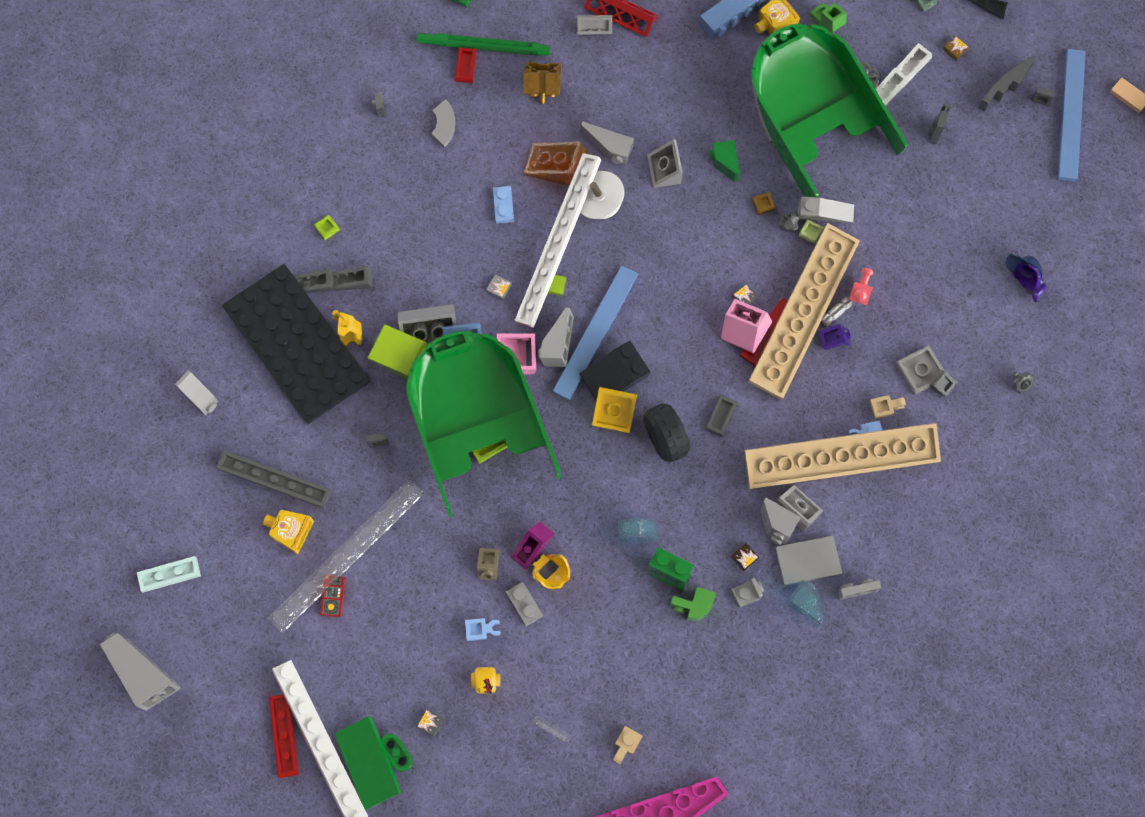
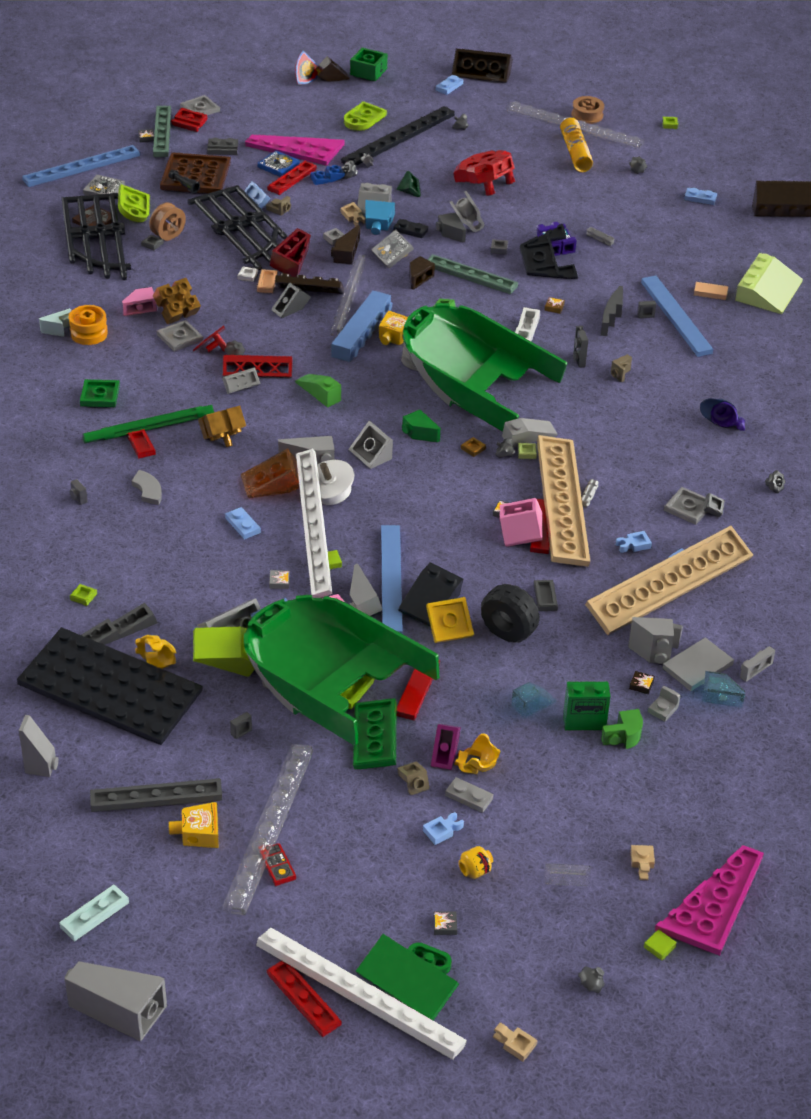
camera: 30 degrees left, 30 degrees down
(482, 502) = (375, 734): none -> green tile
(543, 470) = (414, 695): none -> red tile
(662, 65) = (322, 388): none -> bright green slope
(835, 336) = (601, 507): dark purple bracket -> none
(841, 392) = (635, 541): none -> light blue plate
(860, 291) = (599, 469): coral piece -> none
(885, 406) = (679, 537): tan plate -> none
(968, 164) = (620, 367): none -> dark tan bracket

